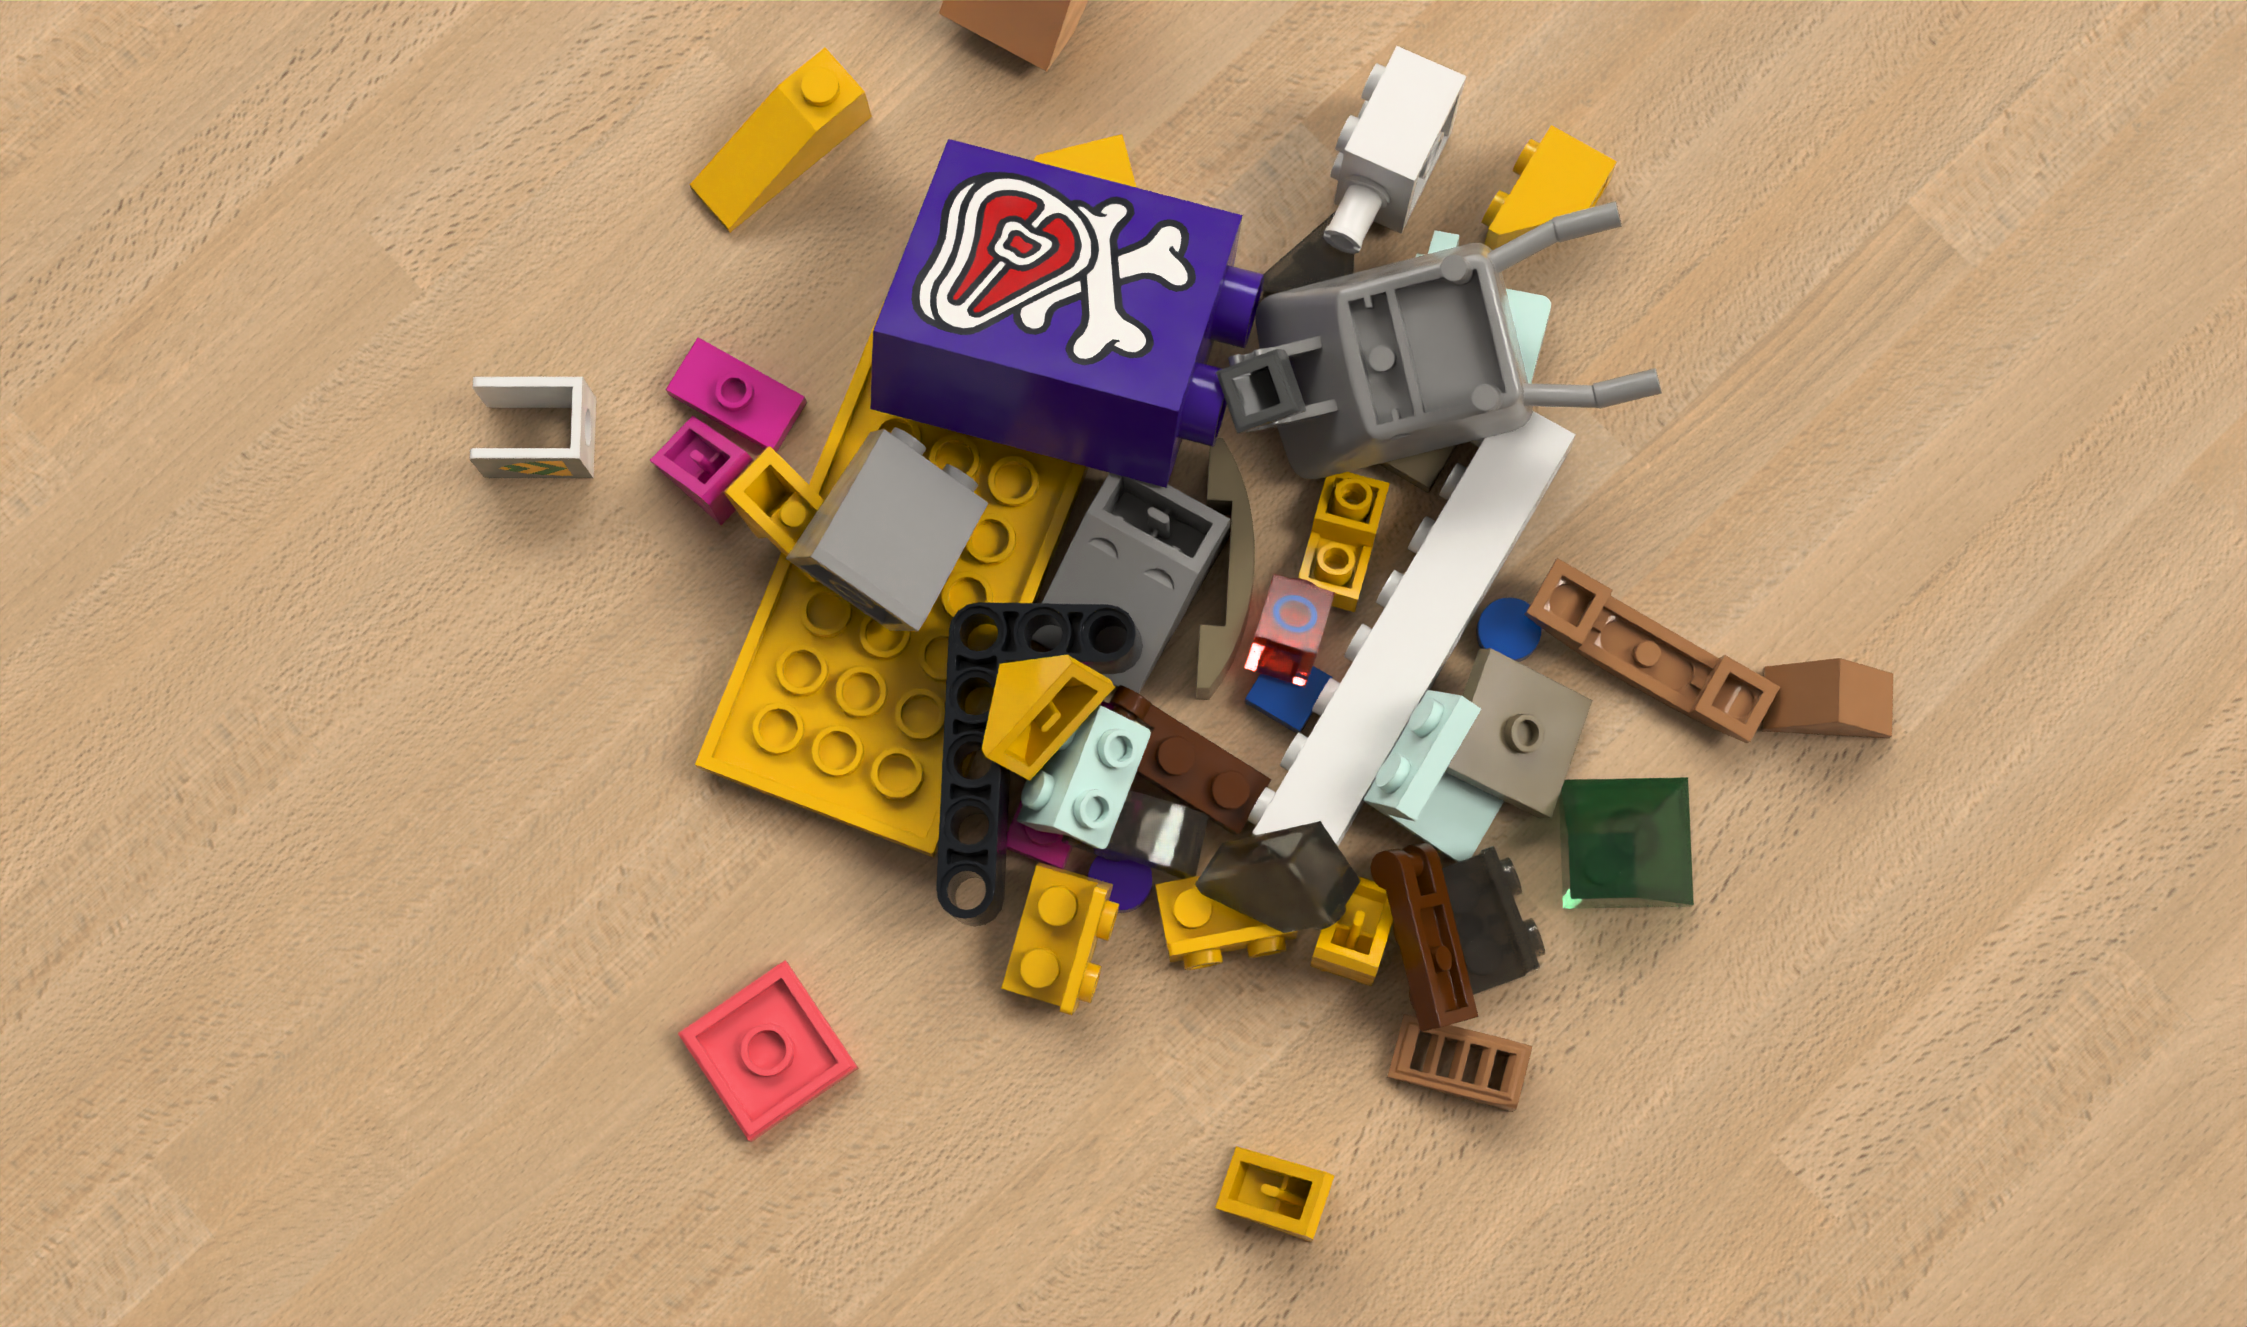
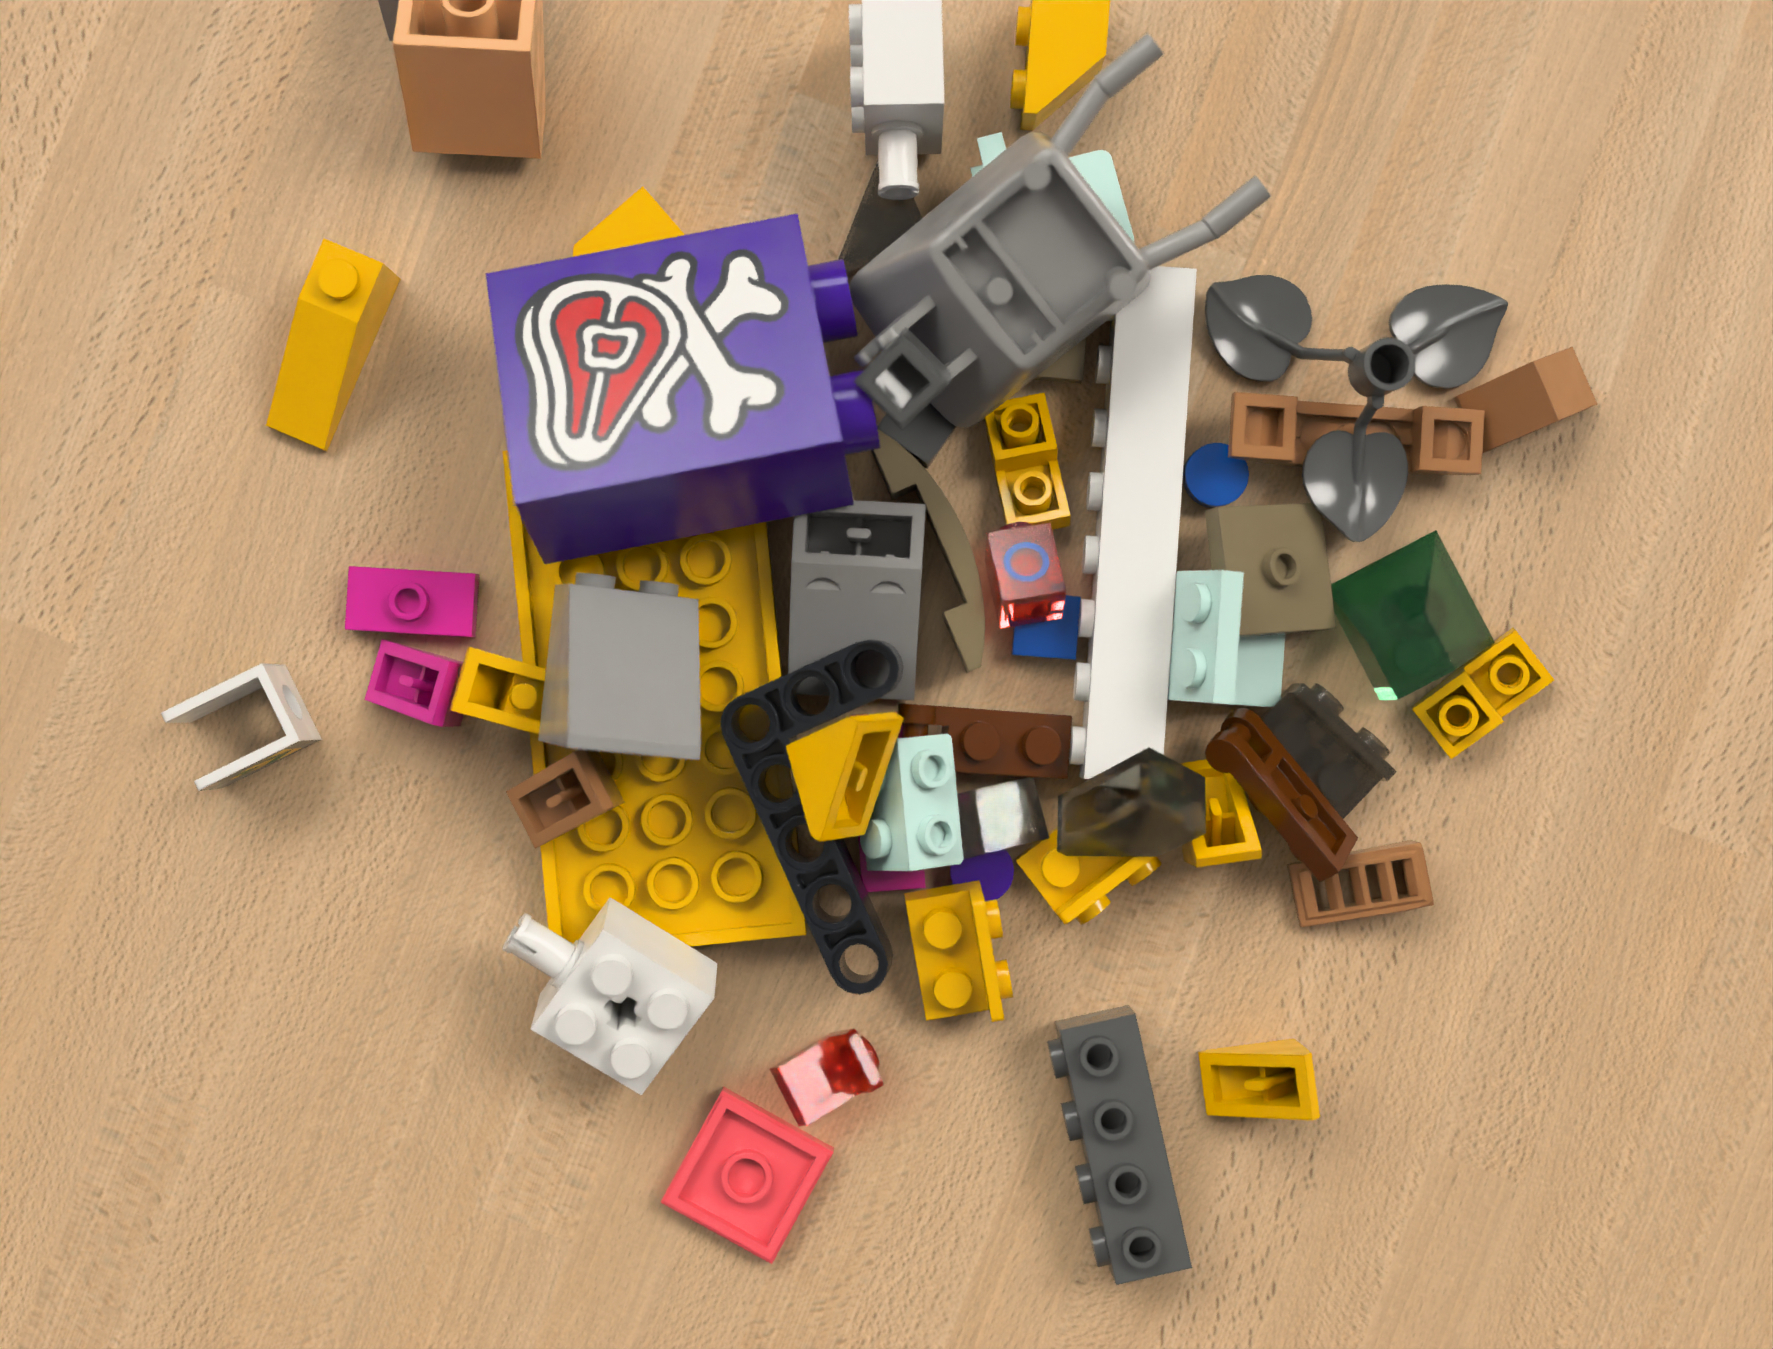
camera: 35 degrees left, 10 degrees up
(728, 786) = (617, 992): none -> white brick
(784, 620) = (565, 796): none -> medium nougat slope
(887, 991) = (827, 1075): none -> clear red bracket
(1122, 1186) = (1121, 1144): none -> dark grey brick
(1260, 460) = (921, 436): none -> dark grey slope
(1634, 690) = (1437, 336): none -> dark grey plant
(1659, 944) = (1482, 693): none -> yellow slope

